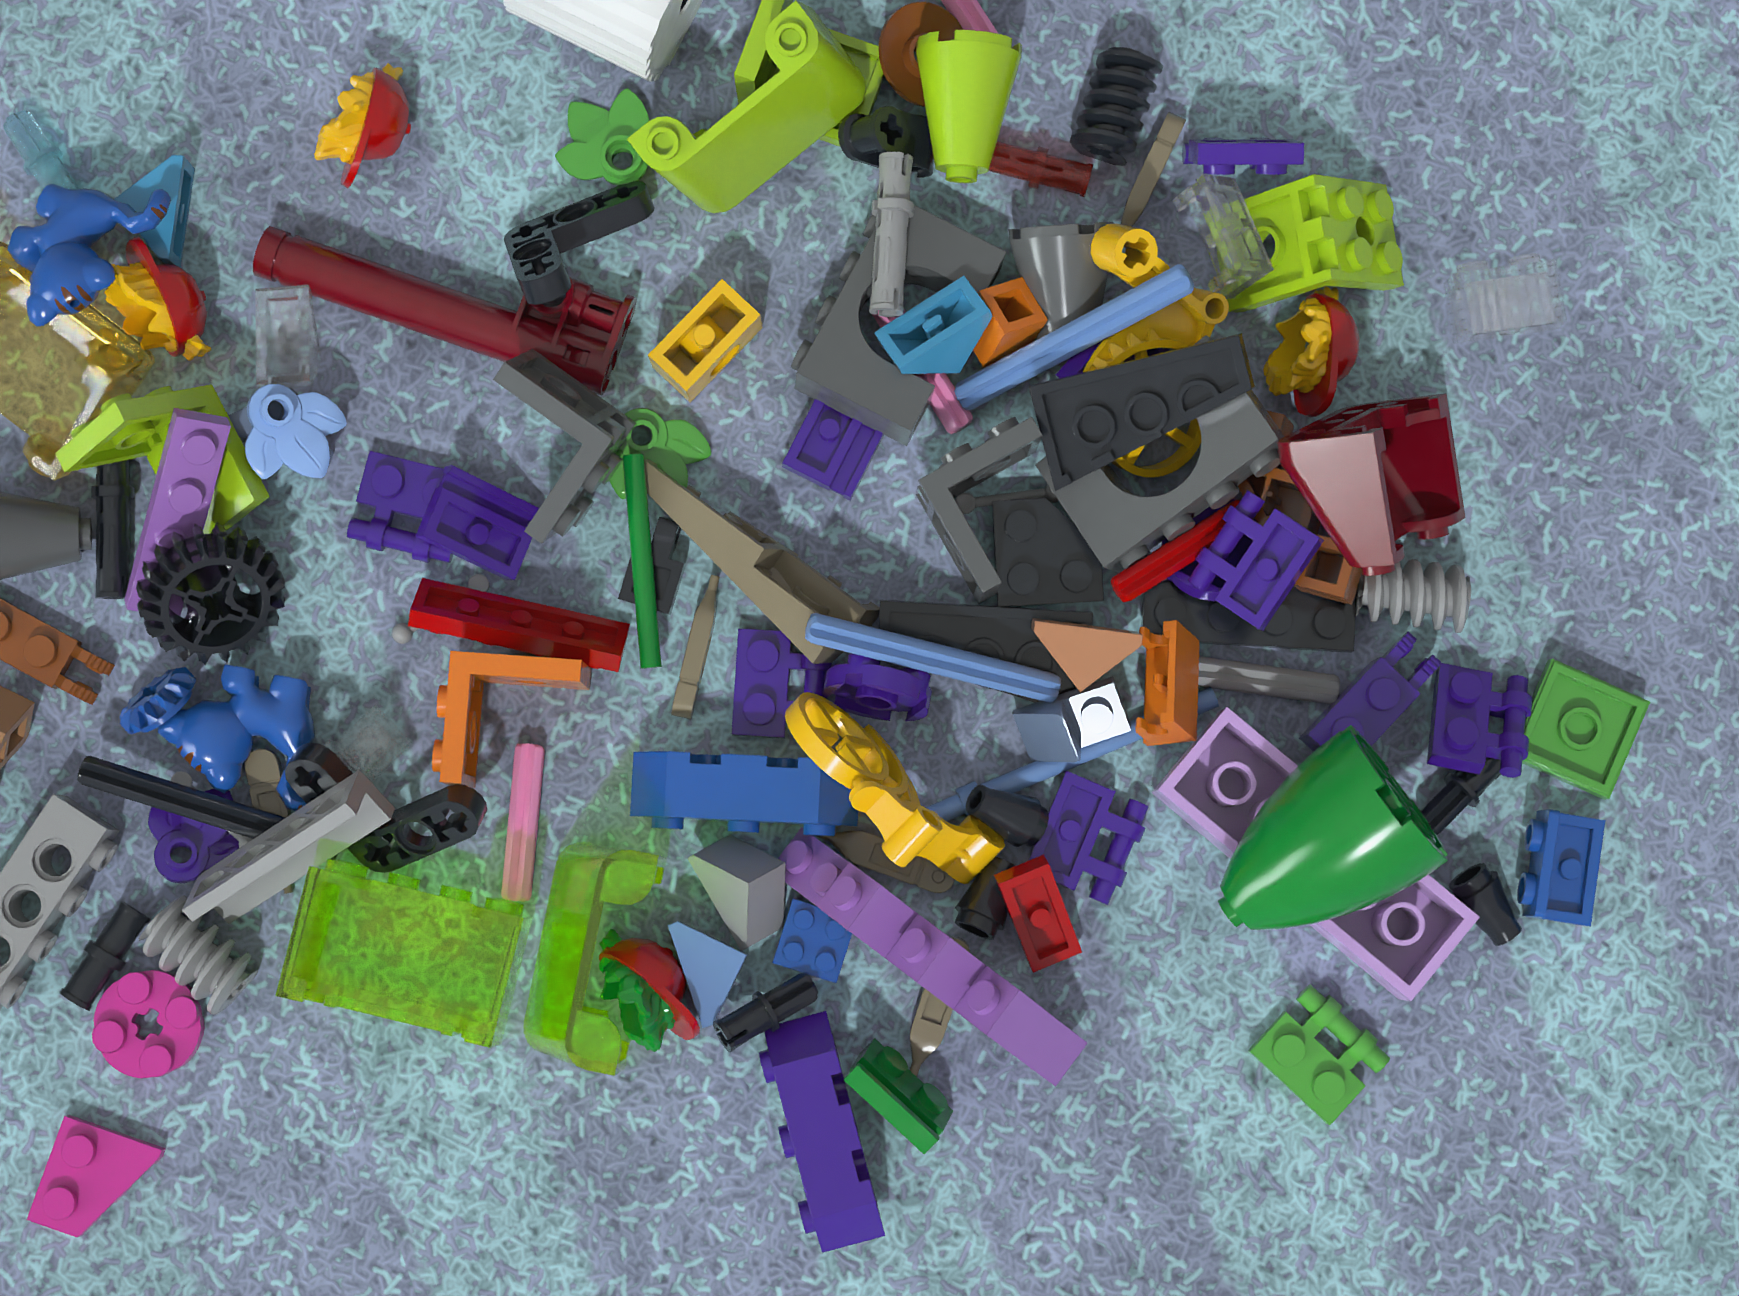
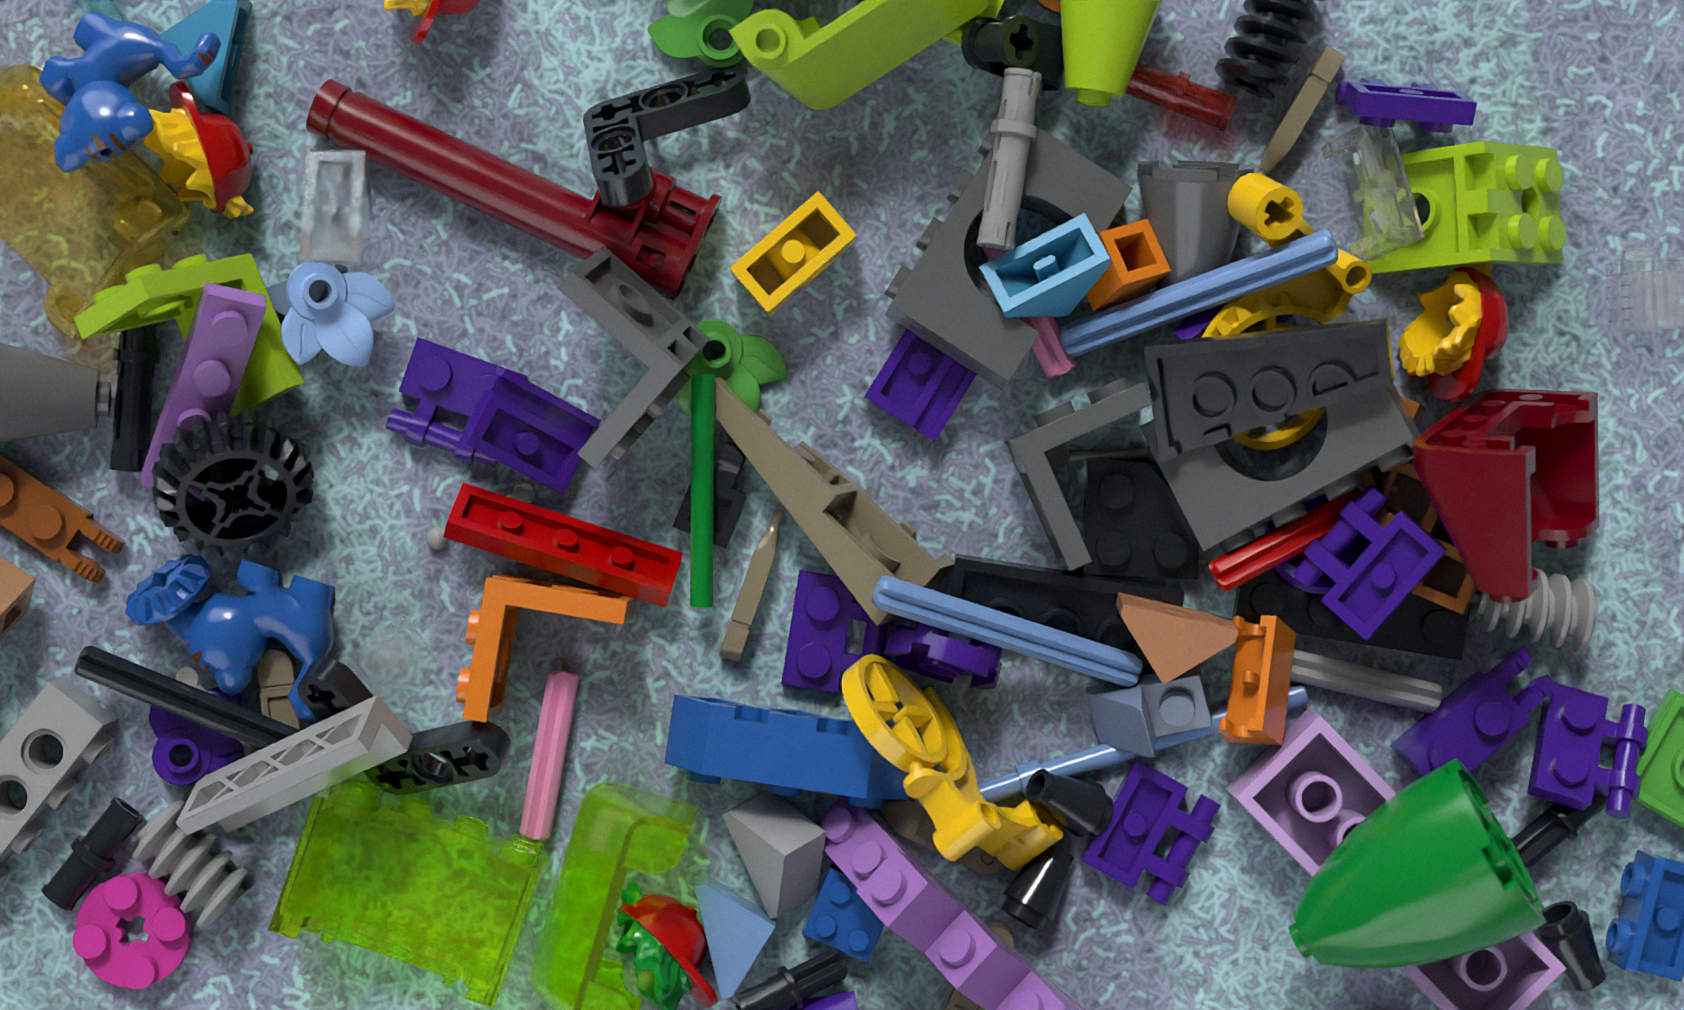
camera: 10 degrees right, 5 degrees up
(1038, 913) = (1091, 910): red plate -> none

